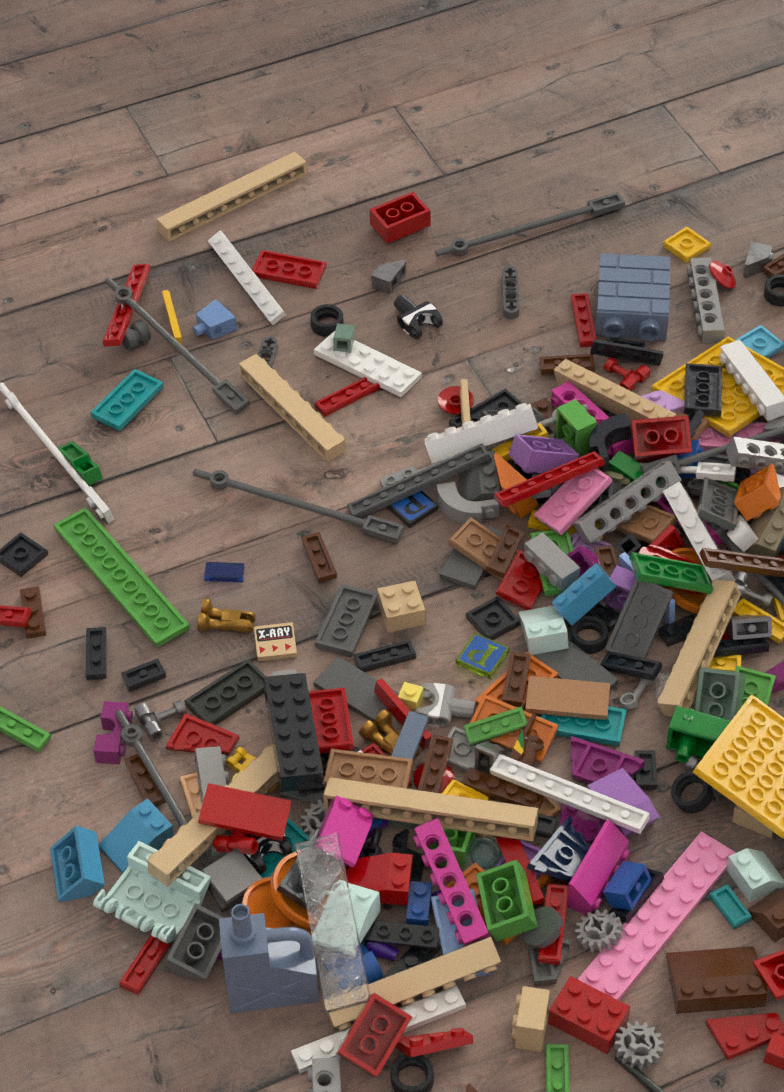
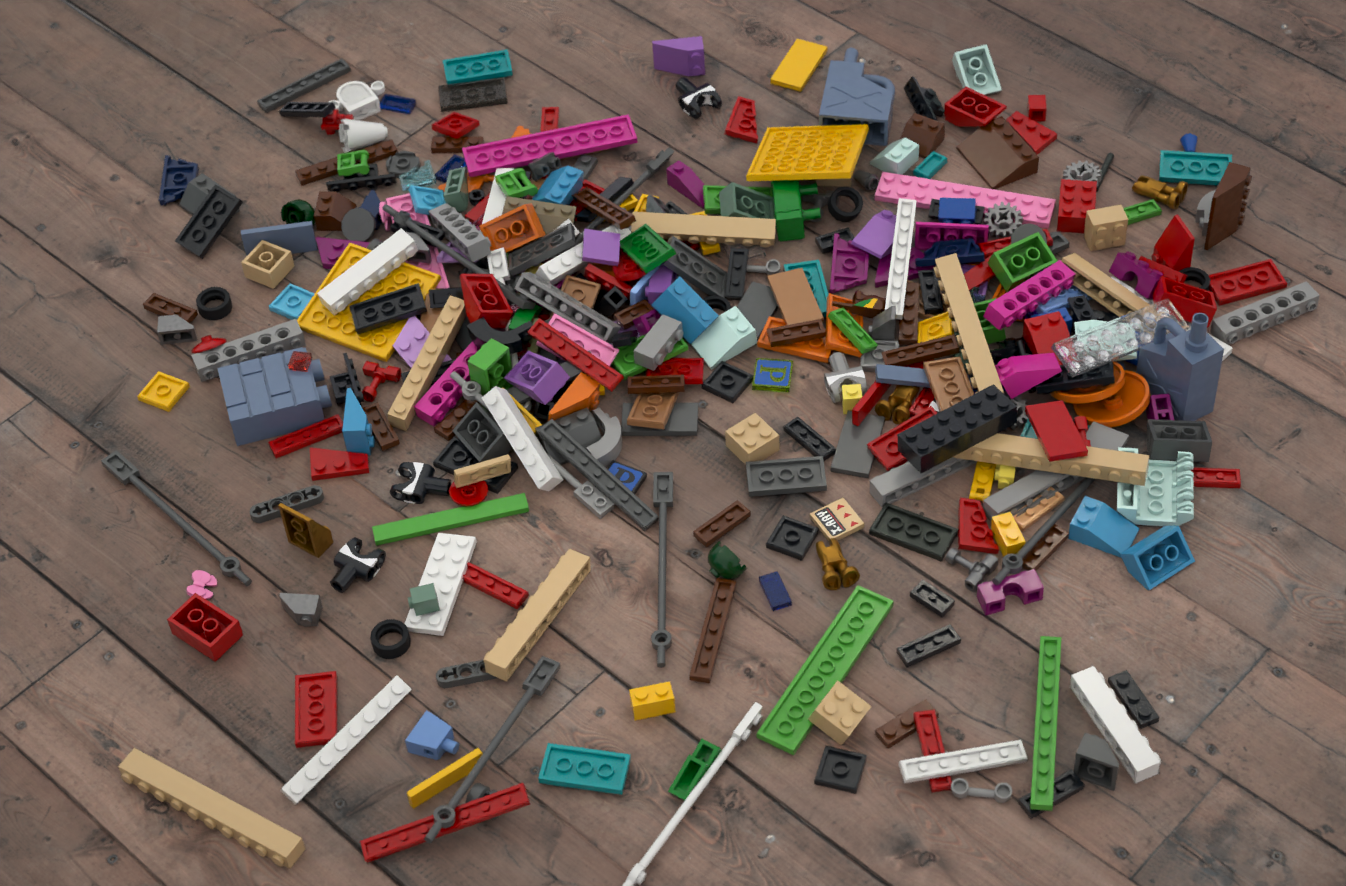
camera: 110 degrees left, 0 degrees up
(63, 560) = (839, 712): none -> tan brick
(160, 453) = (652, 700): none -> yellow brick
(172, 754) = (1007, 533): none -> yellow brick
(208, 515) = (712, 630): none -> reddish brown plate
(270, 541) = (724, 562): none -> dark green cylinder
(276, 604) = (792, 538): none -> black tile
(434, 385) = (450, 519): none -> bright green tile
(444, 1018) = (1127, 266): none -> magenta arch
(446, 225) = (201, 580): none -> bright pink piece
(455, 1070) = (1174, 246): none -> red slope
(462, 283) = (305, 532): none -> pearl gold slope
(484, 373) = (419, 484): none -> black connector
(539, 330) = (335, 463): none -> red wing
(567, 338) = (355, 426): none -> dark azure slope
(571, 537) = (624, 338): none -> black slope
(647, 305) = (300, 361): none -> clear red plate
(688, 537) = (601, 247): none -> medium lavender tile
(729, 832) = (867, 180): none -> dark grey cone

